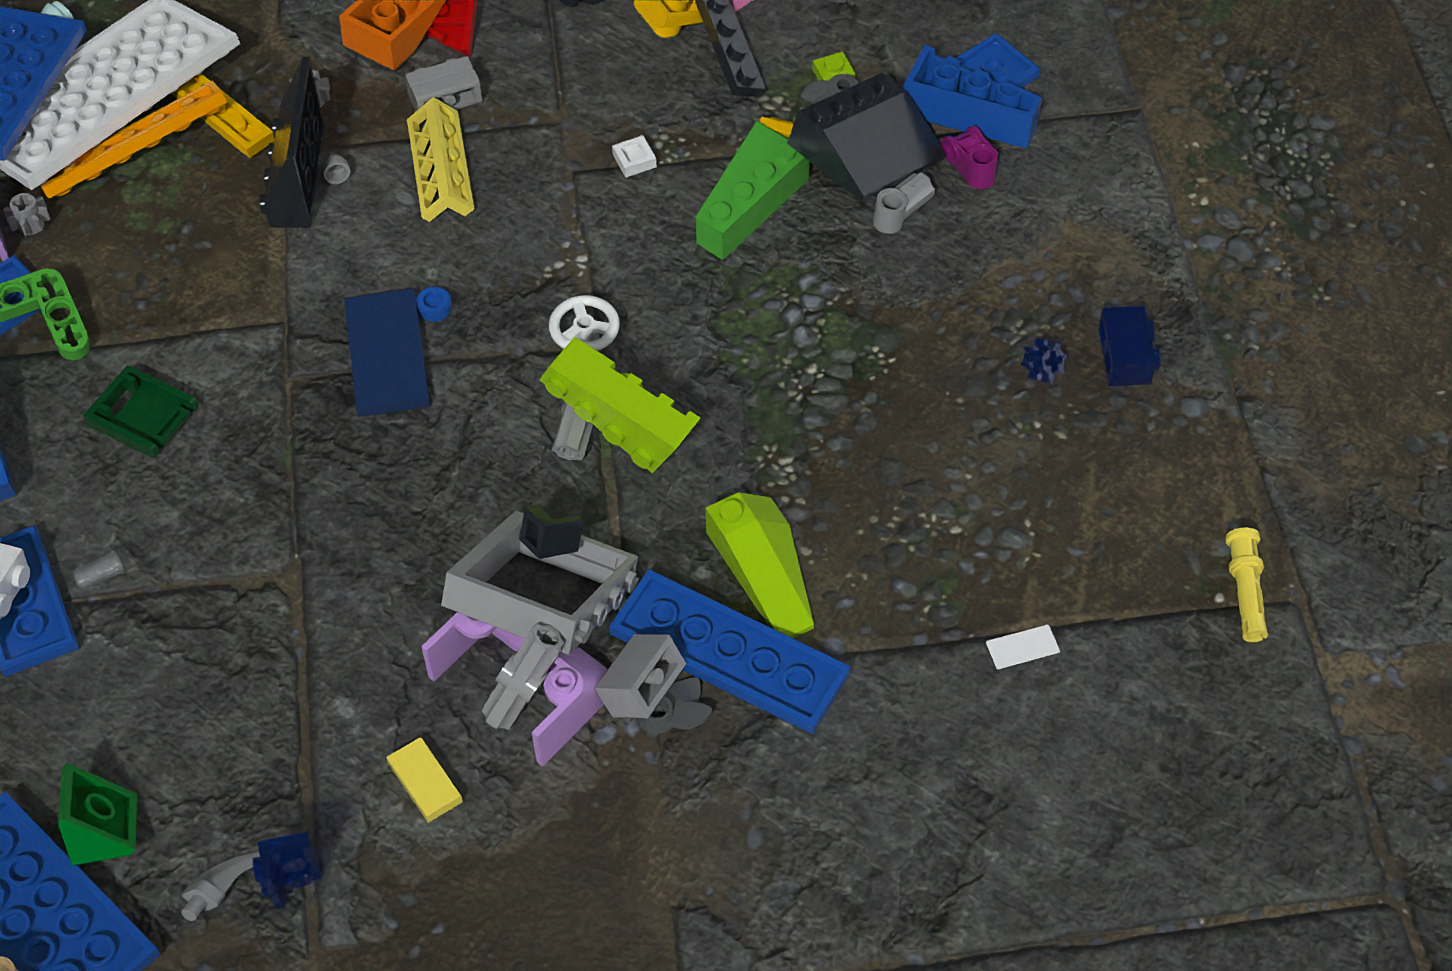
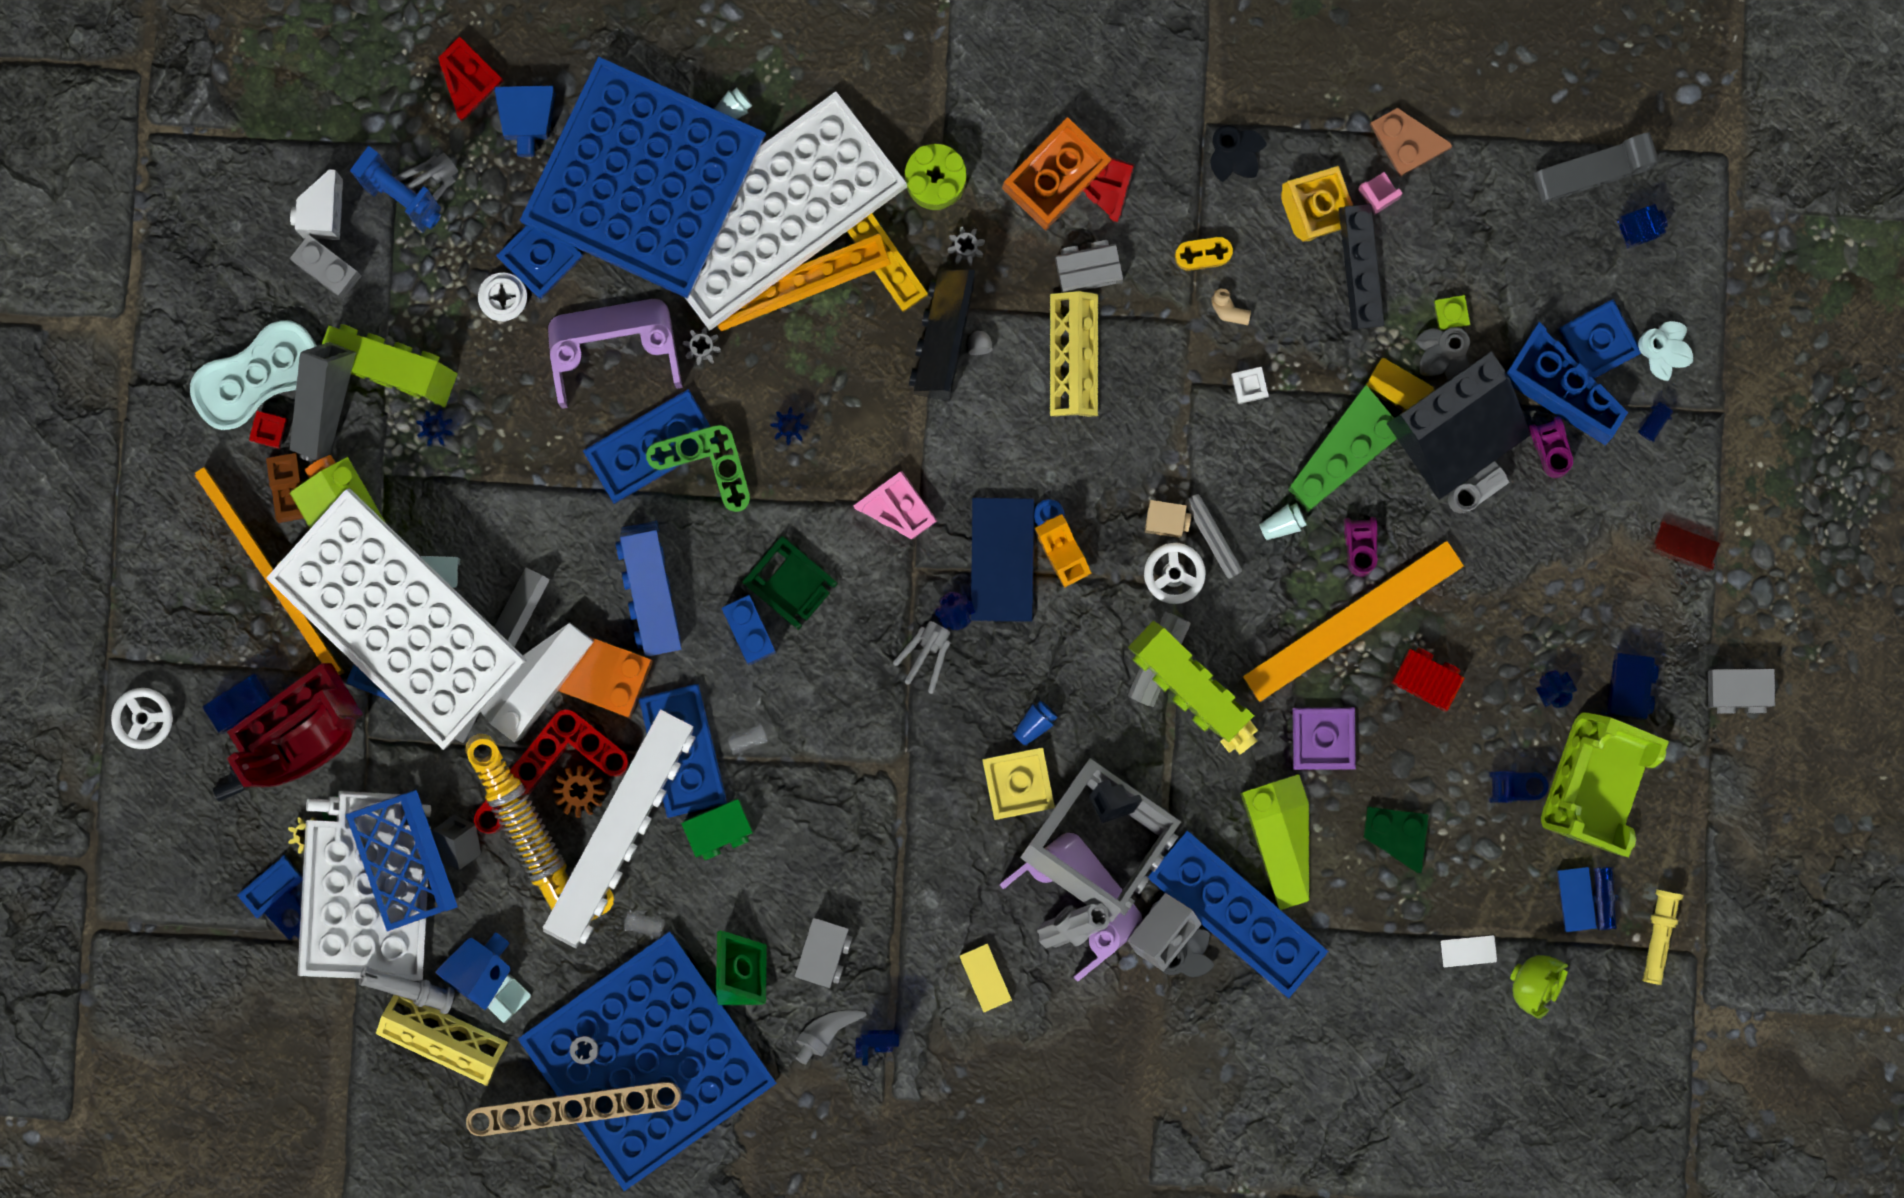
camera: 10 degrees right, 30 degrees up
(64, 668) = (717, 829): none -> green brick
(92, 457) = (748, 630): none -> blue brick
(129, 266) = (788, 435): none -> clear blue gear
(208, 783) = (823, 952): none -> light grey brick
(259, 320) = (898, 507): none -> bright pink wing
(270, 38) = (926, 161): none -> lime brick
(313, 435) = (933, 638): none -> light grey plant
(335, 400) = (955, 611): none -> clear blue gear
(427, 555) = (1018, 783): none -> light yellow plate
(447, 321) = (1062, 550): none -> light orange brick
(447, 495) = (1035, 723): none -> blue cone
(563, 63) = (1202, 246): none -> yellow beam
(565, 278) = (1167, 519): none -> tan brick
(598, 104) = (1226, 310): none -> tan arm
(622, 292) = (1213, 536): none -> light grey axle
(690, 464) = (1243, 740): none -> light yellow gear
(698, 264) = (1283, 522): none -> light aqua cone
(789, 272) = (1361, 539): none -> magenta piece
(791, 458) = (1323, 738): none -> medium lavender tile
(796, 344) = (1353, 621): none -> light orange tile
(896, 377) = (1428, 679): none -> red brick
(902, 537) = (1398, 834): none -> dark green wing
(1028, 461) = (1515, 786): none -> clear blue piece
(1063, 61) = (1670, 349): none -> light aqua plate
(1075, 114) = (1655, 421): none -> clear blue pin
(1118, 653) = (1538, 983): none -> lime cylinder
(1123, 434) = (1600, 782): none -> lime windscreen
(1135, 567) = (1576, 899): none -> blue tile
(1142, 220) = (1685, 547): none -> clear red panel
(1168, 556) = (1605, 898): none -> clear blue pin
(1250, 327) = (1741, 689): none -> light grey brick

